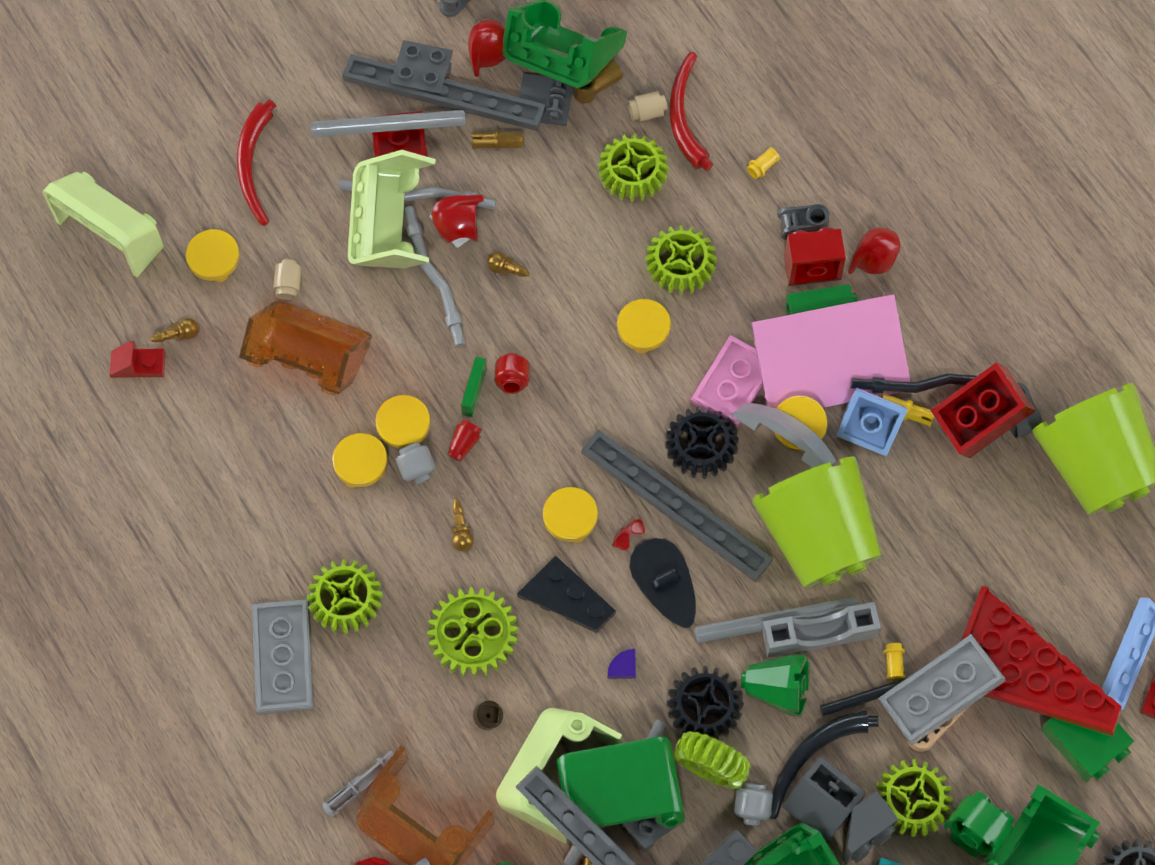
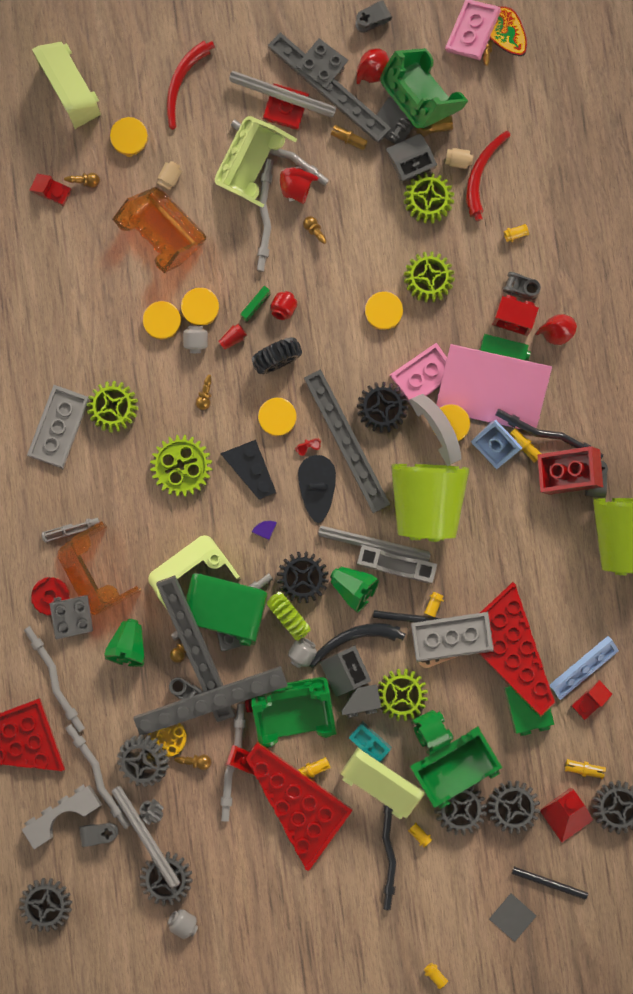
camera: 25 degrees right, 15 degrees up
(488, 715) = (167, 522): dark brown tile -> none
(533, 435) = (276, 355): none -> black gear
(589, 130) = (411, 158): none -> dark grey slope

